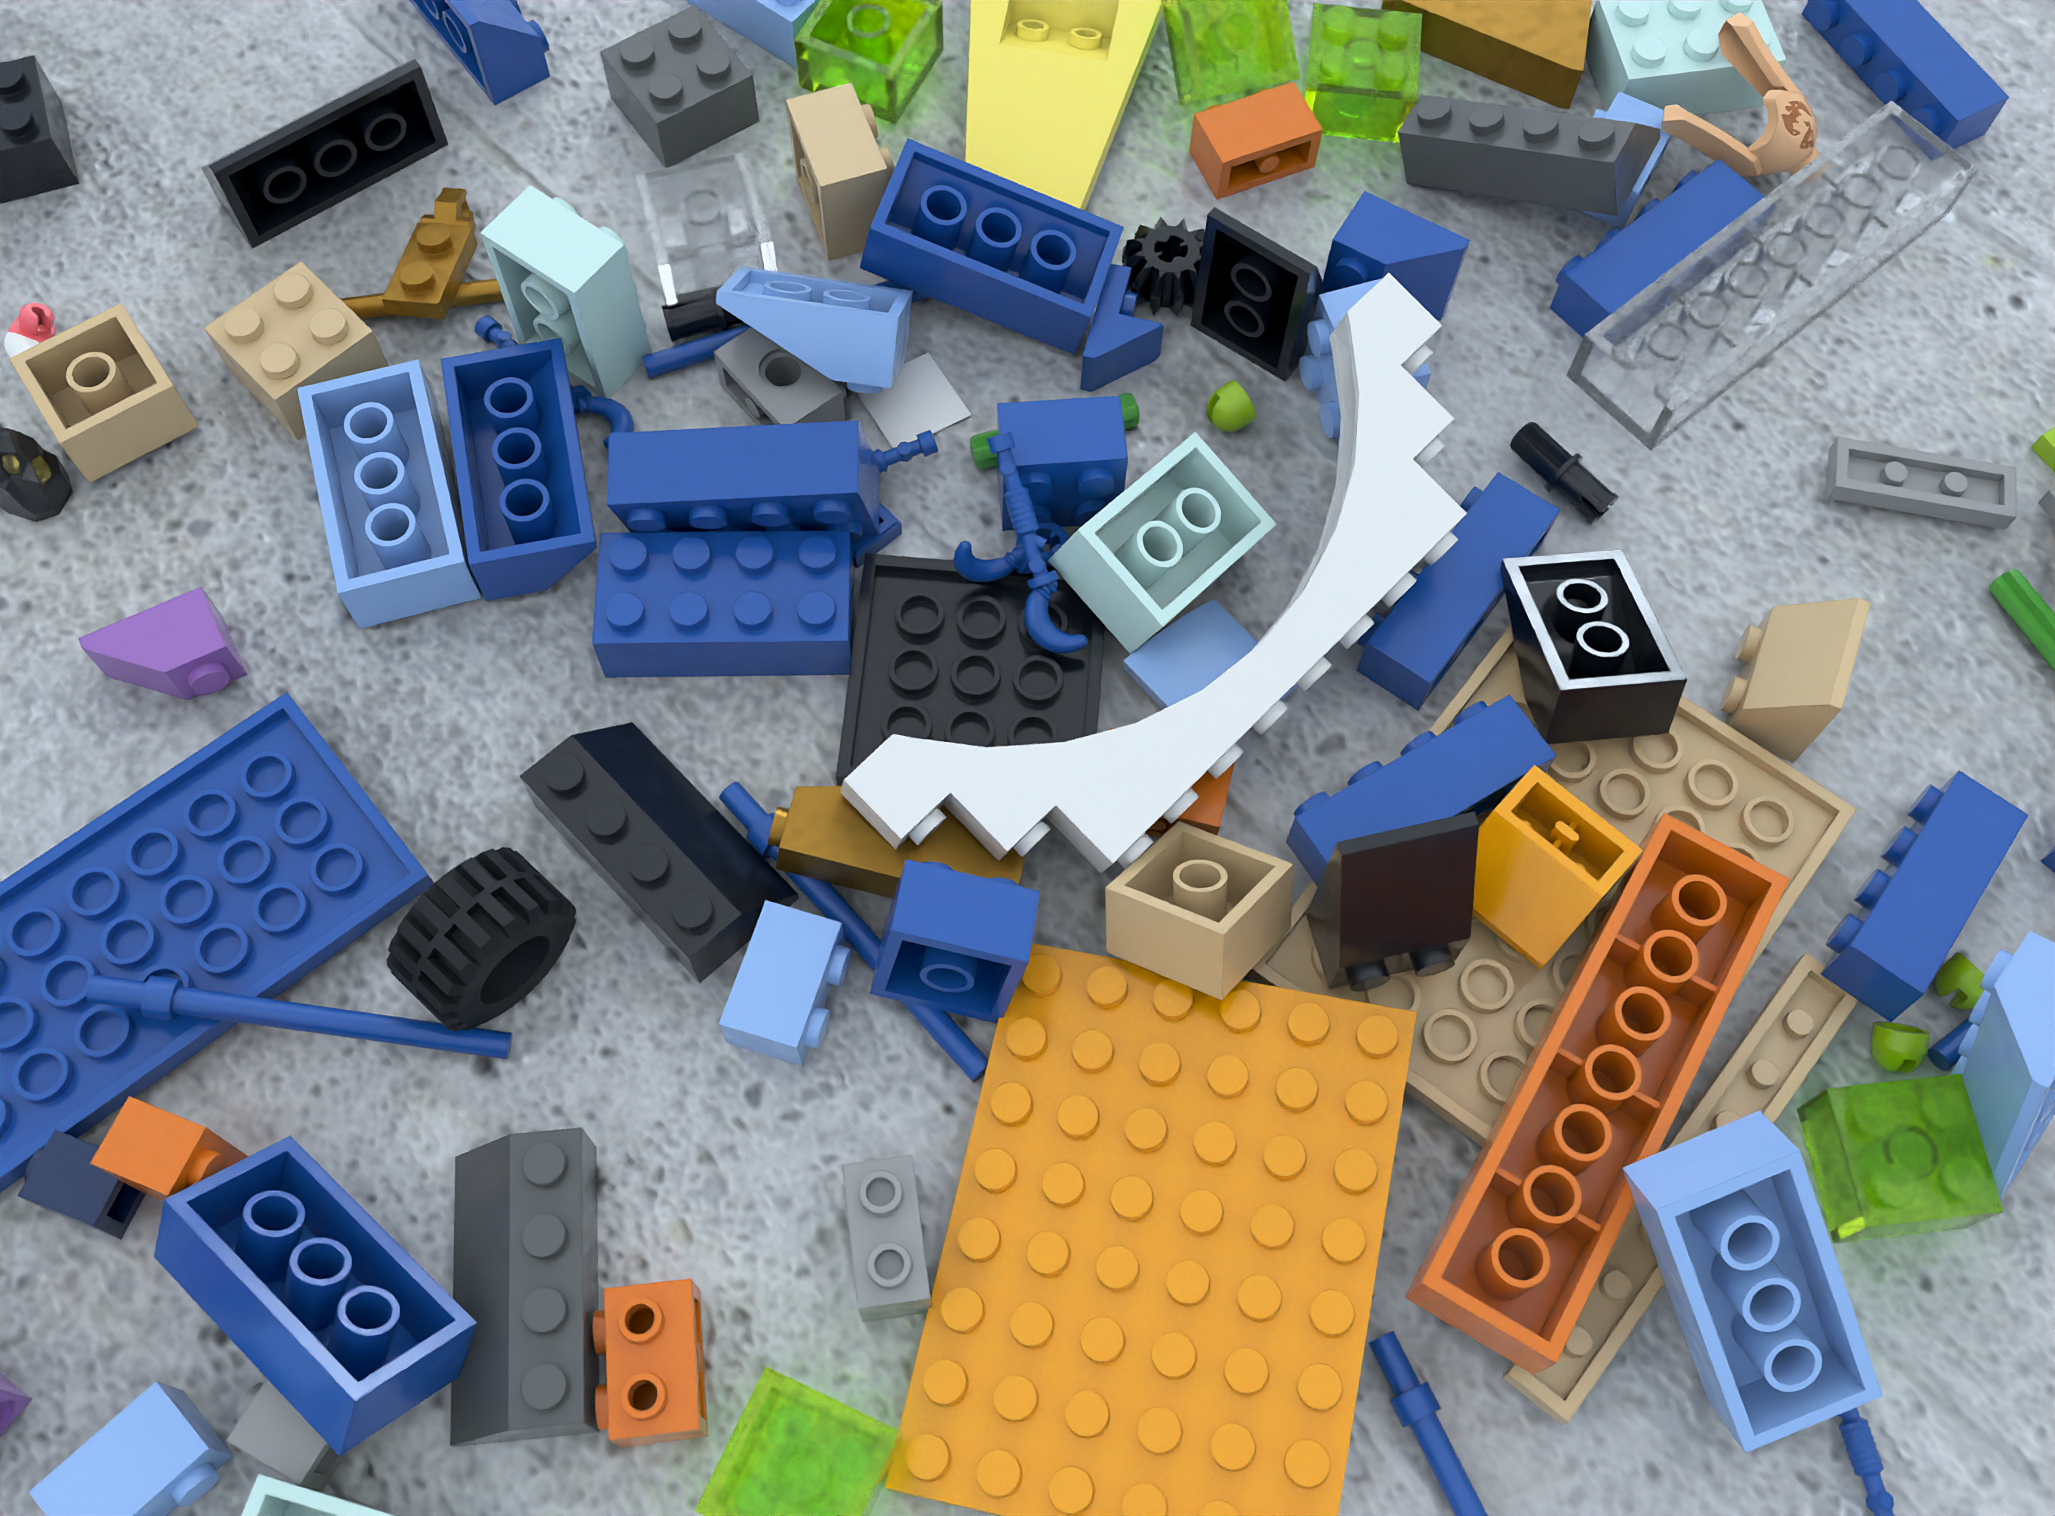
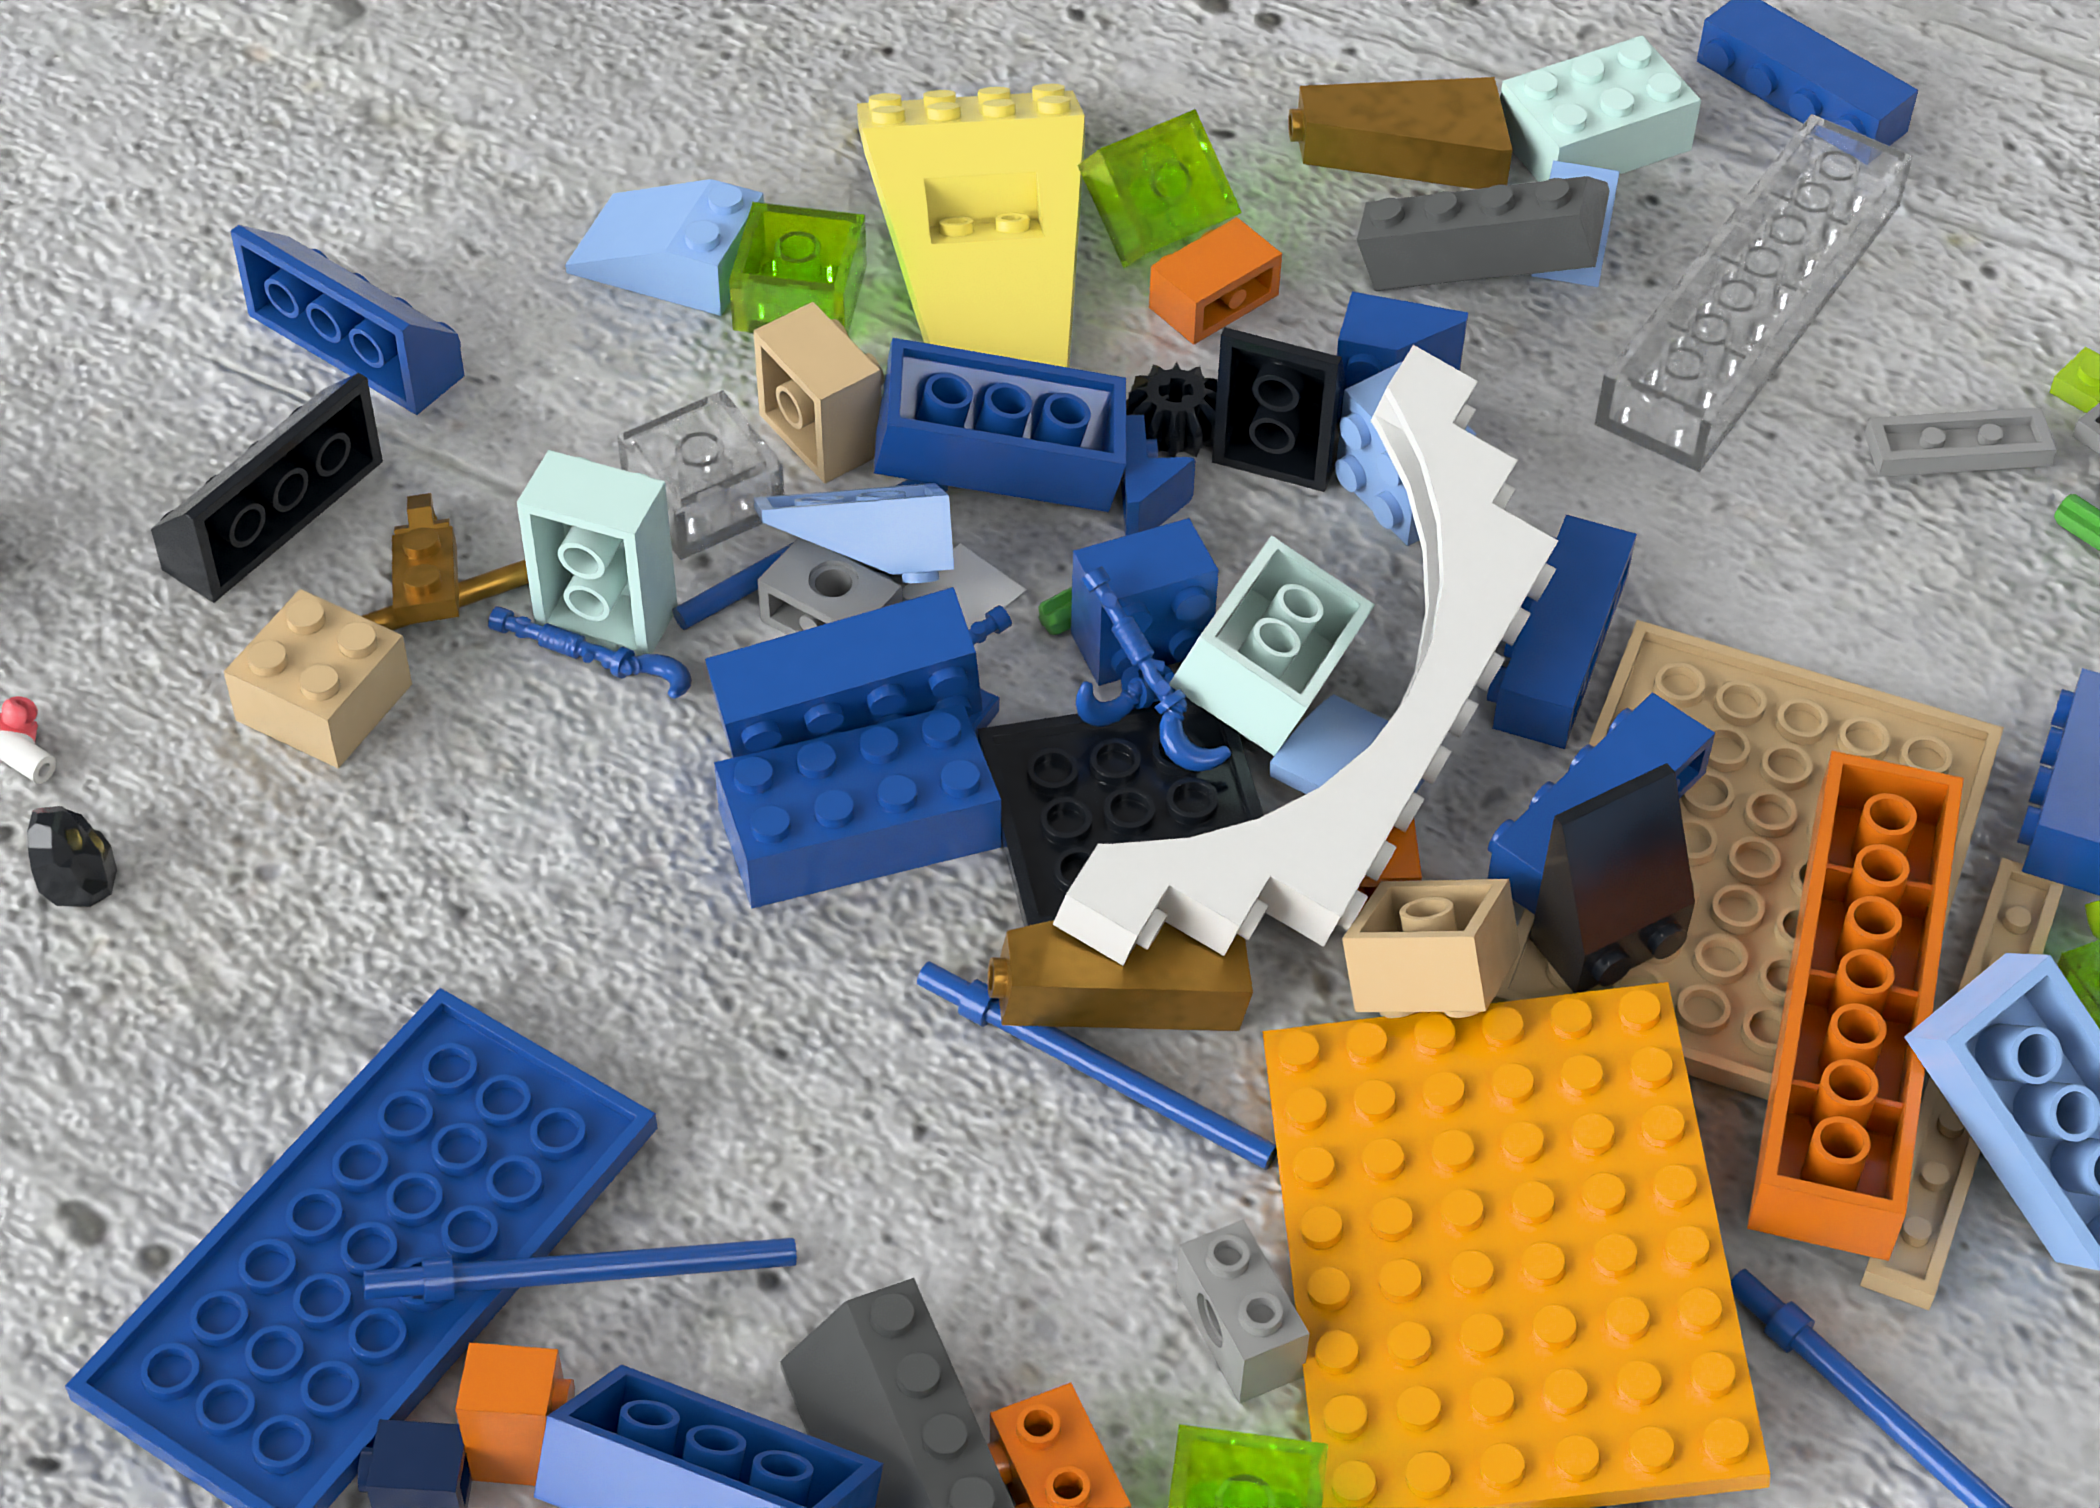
camera: 15 degrees left, 15 degrees down
(103, 393) = (133, 759): tan brick -> none
(169, 648) = (297, 980): medium lavender slope -> none
(387, 494) = (475, 783): light blue brick -> none
(481, 938) = (747, 1141): black tyre -> none
(518, 466) = (601, 727): blue slope -> none
(656, 843) = (870, 1040): black slope -> none
(680, 86) = (616, 352): dark grey brick -> none
(697, 317) = (731, 552): black axle -> none
(785, 984) = (1052, 1122): light blue brick -> none
(955, 941) = (1211, 1031): blue brick -> none
(1230, 407) = (1285, 521): lime hinge -> none
(1361, 70) = (1298, 194): clear neon green brick -> none
(1544, 866) = (1743, 829): light orange slope -> none
(1563, 472) = (1624, 507): black axle -> none
(1590, 648) = (1711, 641): black slope -> none
(1650, 245) = (1630, 292): blue brick -> none
(1791, 124) = (1727, 158): light nougat piece -> none
(1794, 673) = (1904, 622): tan slope -> none

